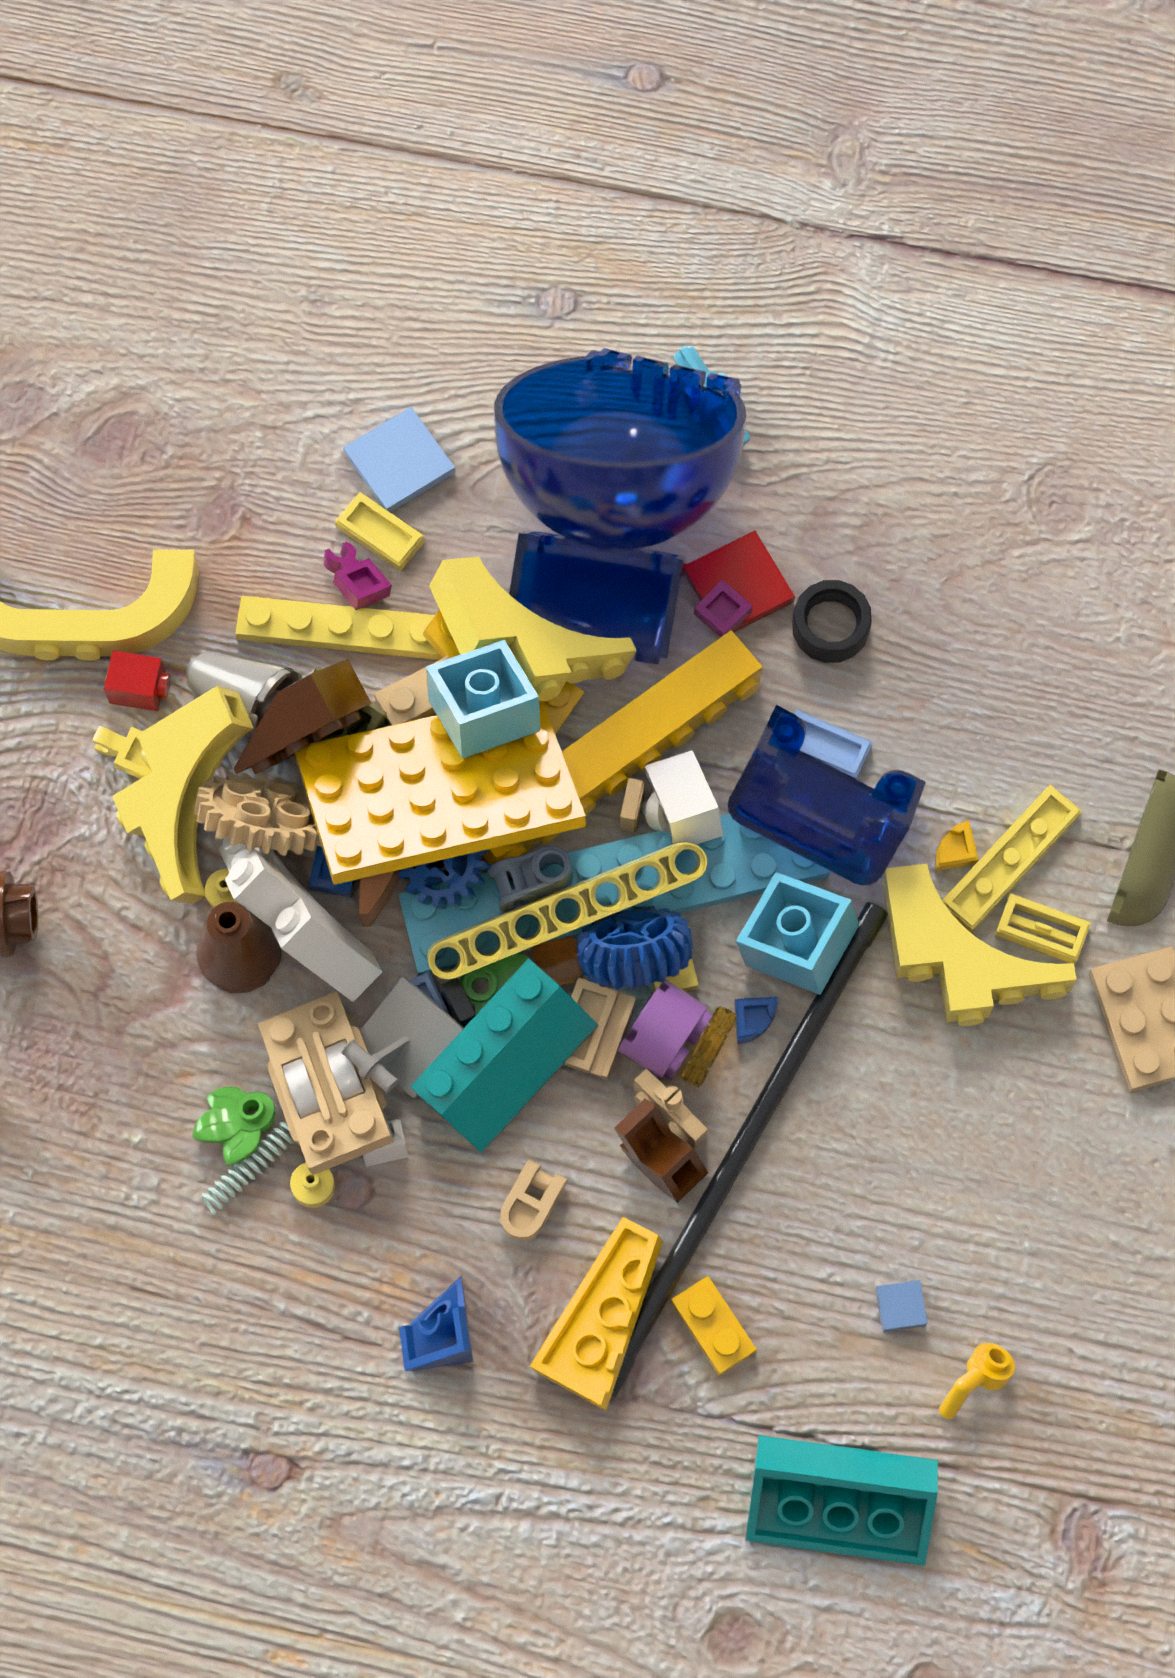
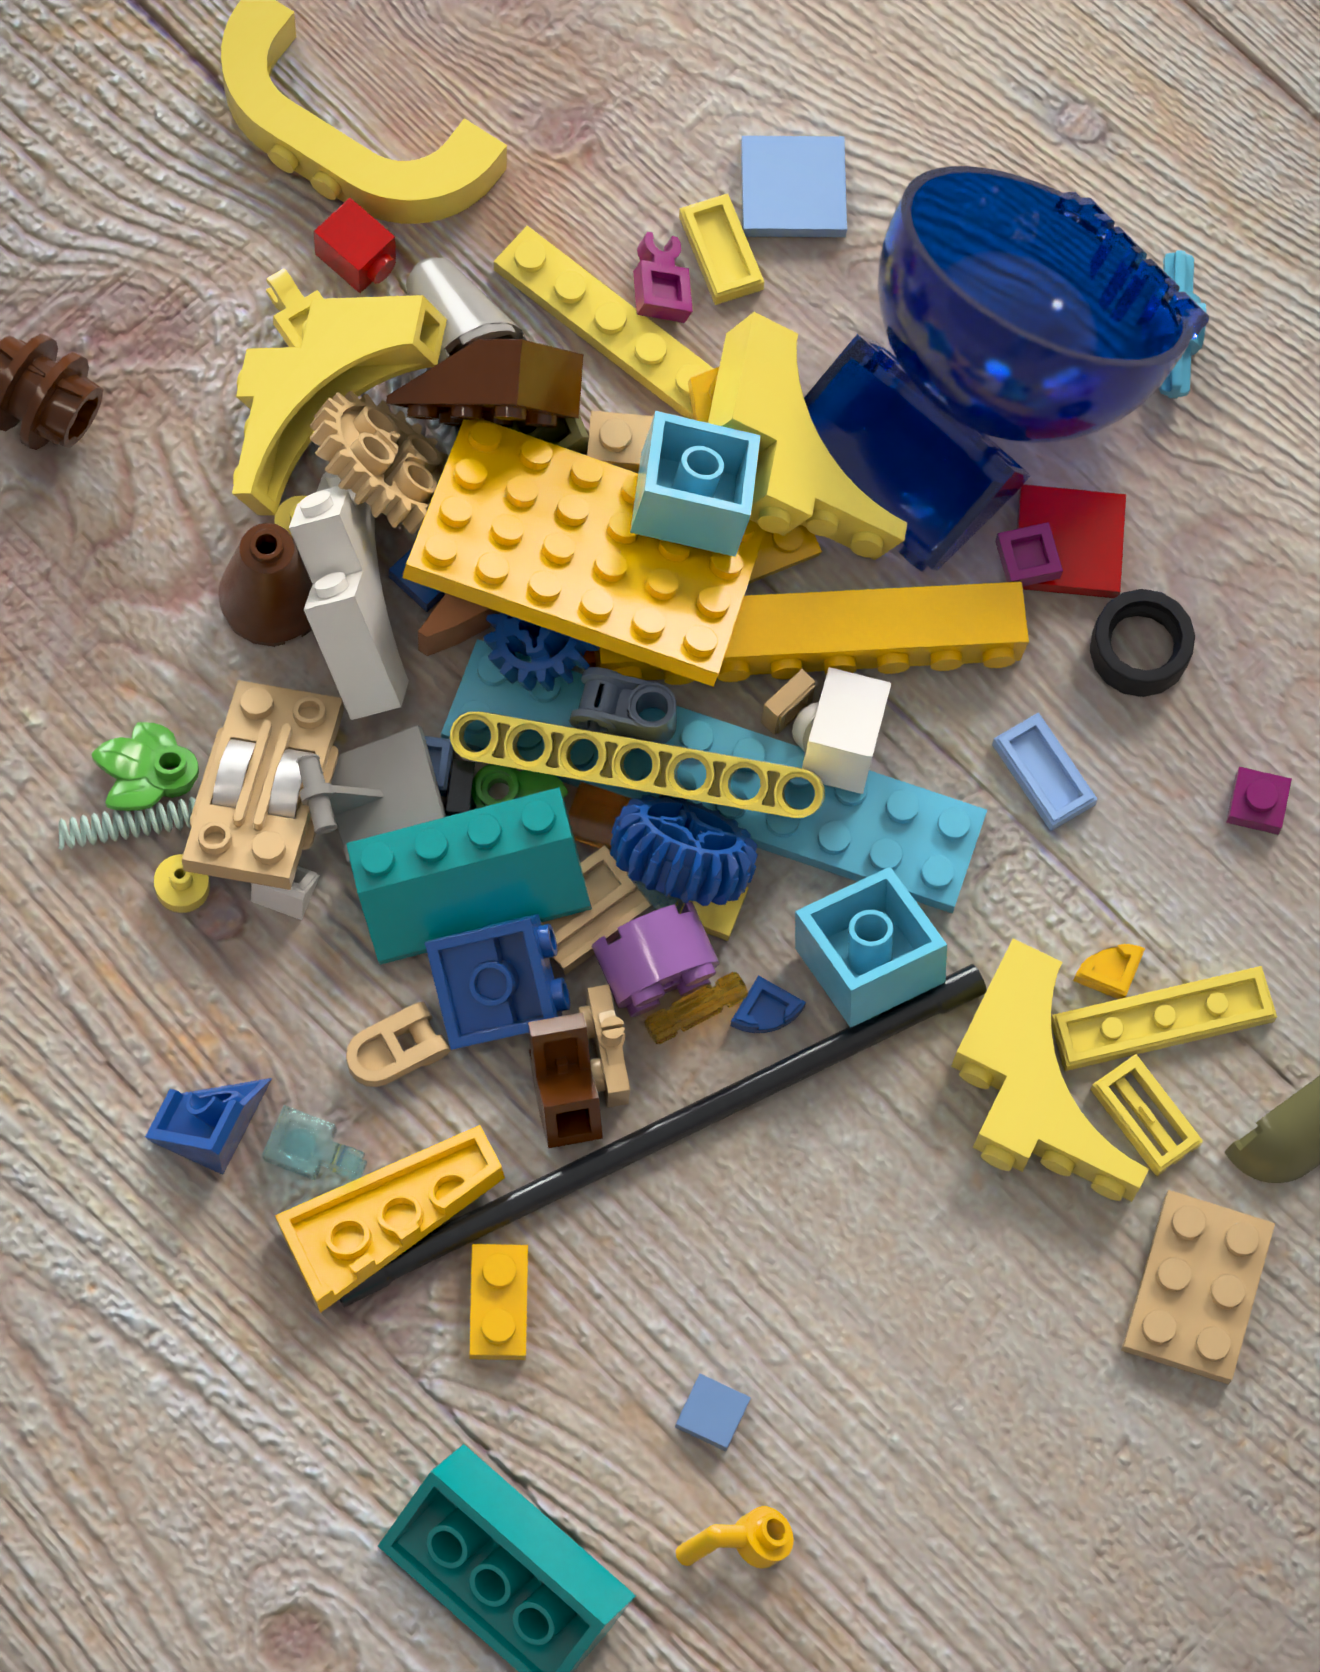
camera: 25 degrees right, 0 degrees up
(515, 1305) = (306, 1143): none -> clear light blue plate
(570, 1113) = (496, 980): none -> blue plate
(821, 808) = (985, 825): clear blue windscreen -> none
(974, 677) = (1258, 800): none -> magenta plate

